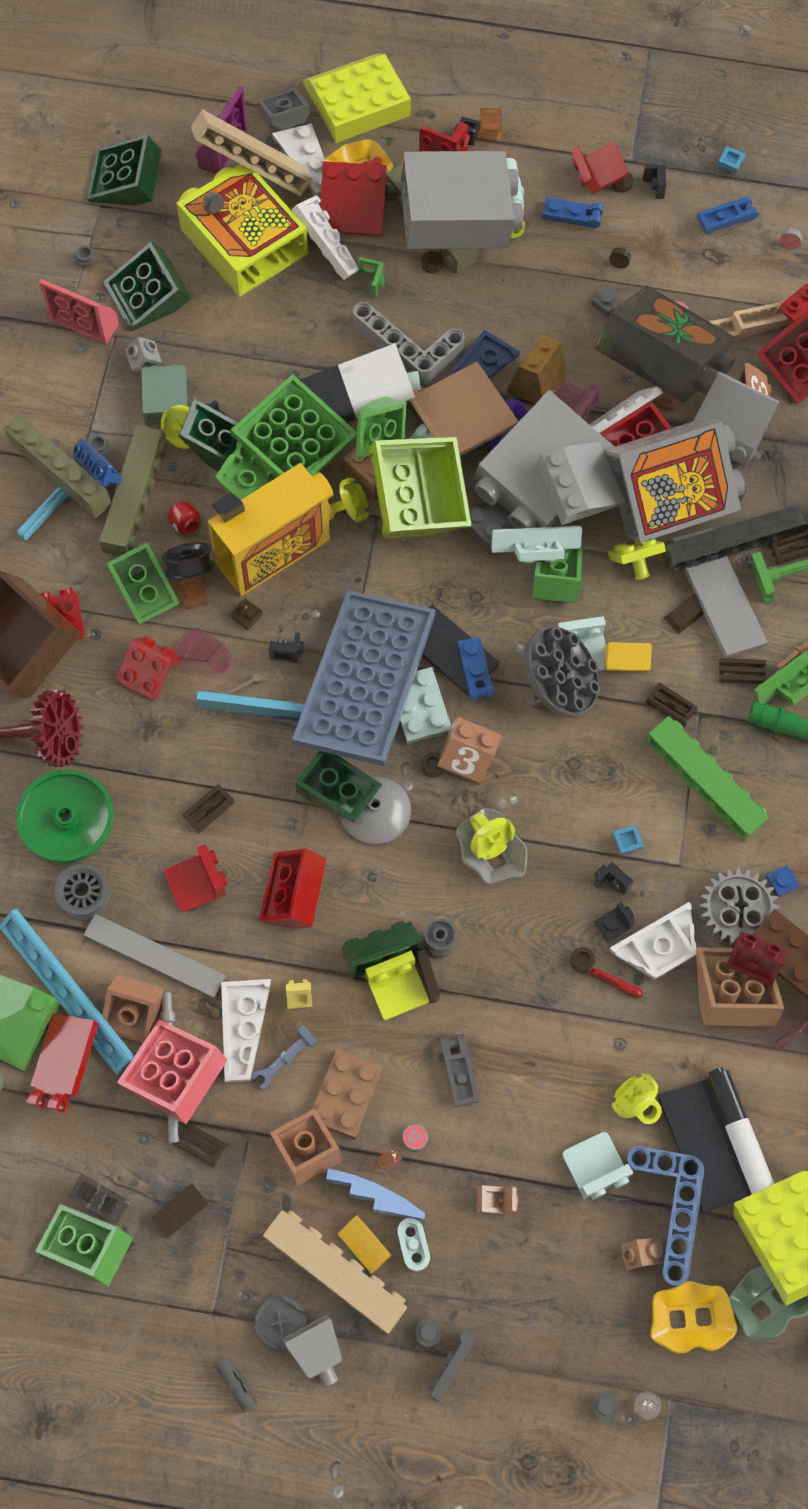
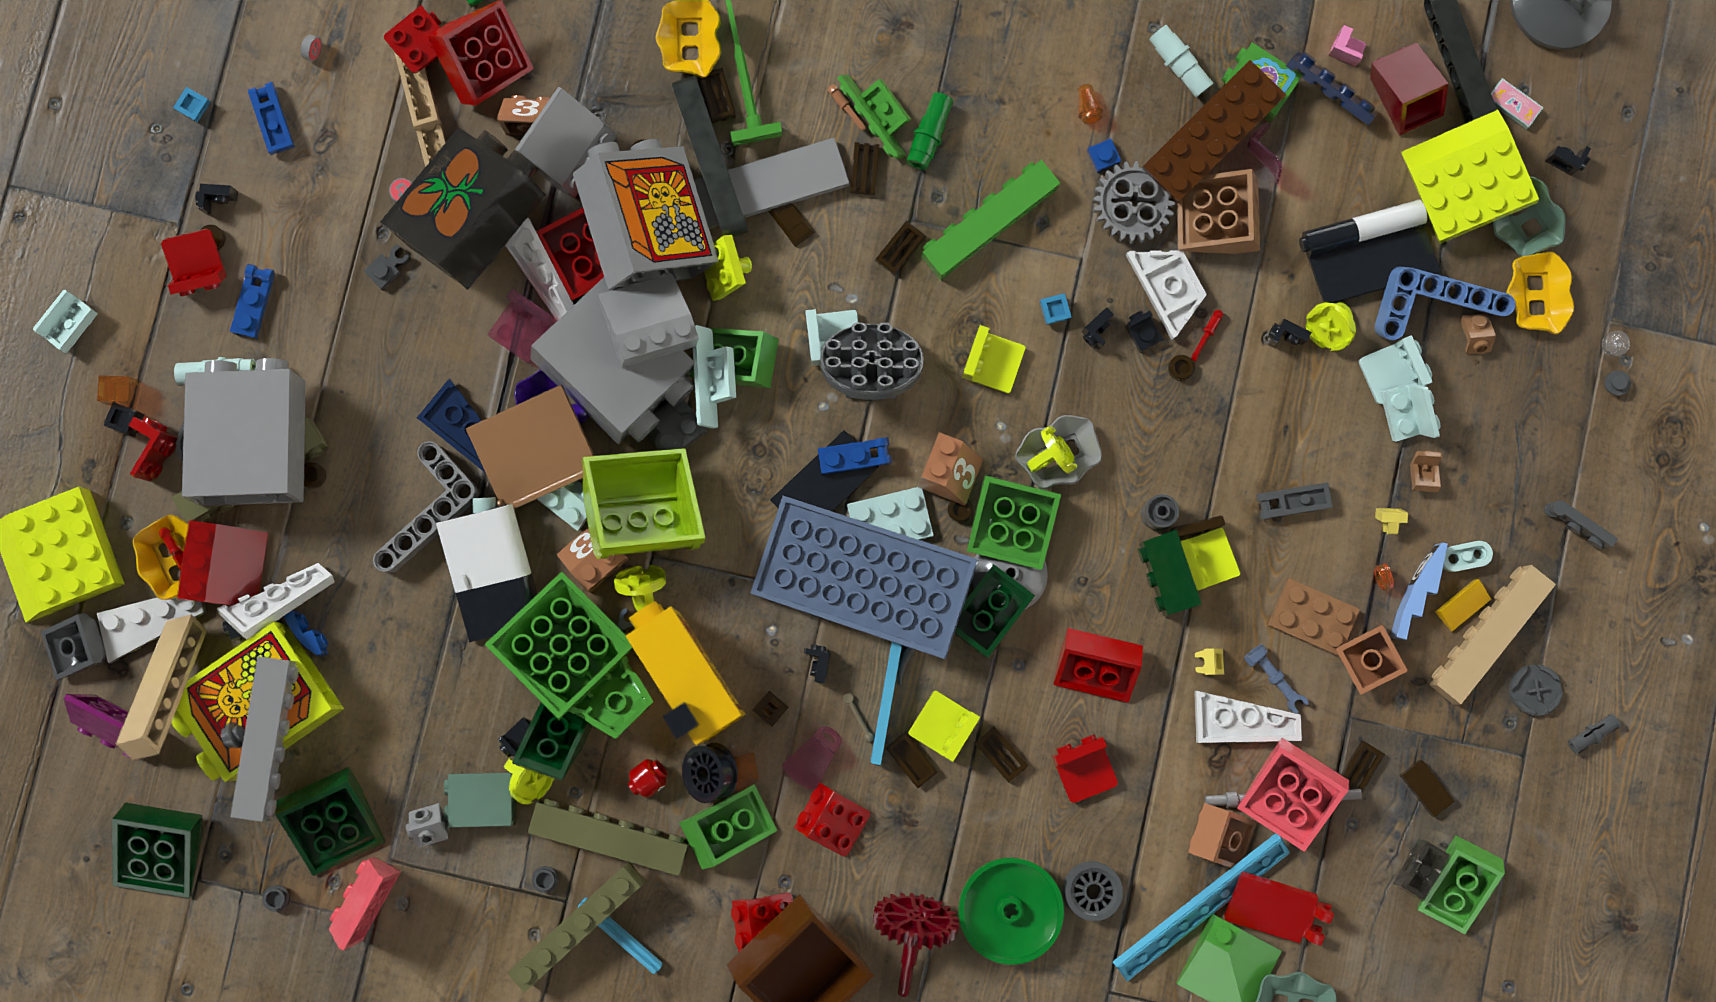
camera: 90 degrees left, 15 degrees up
(95, 464) = (580, 879): blue bracket -> none
(154, 956) = (1164, 813): light grey tile -> none
(202, 731) = (911, 760): none -> dark brown tile
(210, 222) = (264, 739): none -> light grey brick
(233, 756) = (943, 725): none -> neon yellow bracket
(294, 265) = (312, 639): none -> blue slope
(315, 1350) = (1566, 656): light grey torso -> none
(378, 272) = (321, 541): bright green bracket -> none
(378, 421) = (555, 543): bright green slope -> none
(415, 1137) = (1359, 549): coral tile -> none
(423, 805) = (1013, 522): none -> bright green slope
(428, 1333) = (1548, 546): dark grey plate -> none
(447, 1165) = (1391, 518): none -> light yellow tile
(539, 371) = (485, 359): pearl gold slope -> none
(544, 86) = (65, 321): none -> light aqua bracket
(554, 1176) = (1410, 412): none -> light aqua bracket
(574, 784) = (993, 361): none -> neon yellow bracket
(620, 257) = (324, 250): dark brown tile -> none
(624, 1063) = (1292, 333): none -> black bracket
(627, 656) = (846, 290): yellow slope -> none
(756, 958) = (1198, 189): dark red bracket -> none

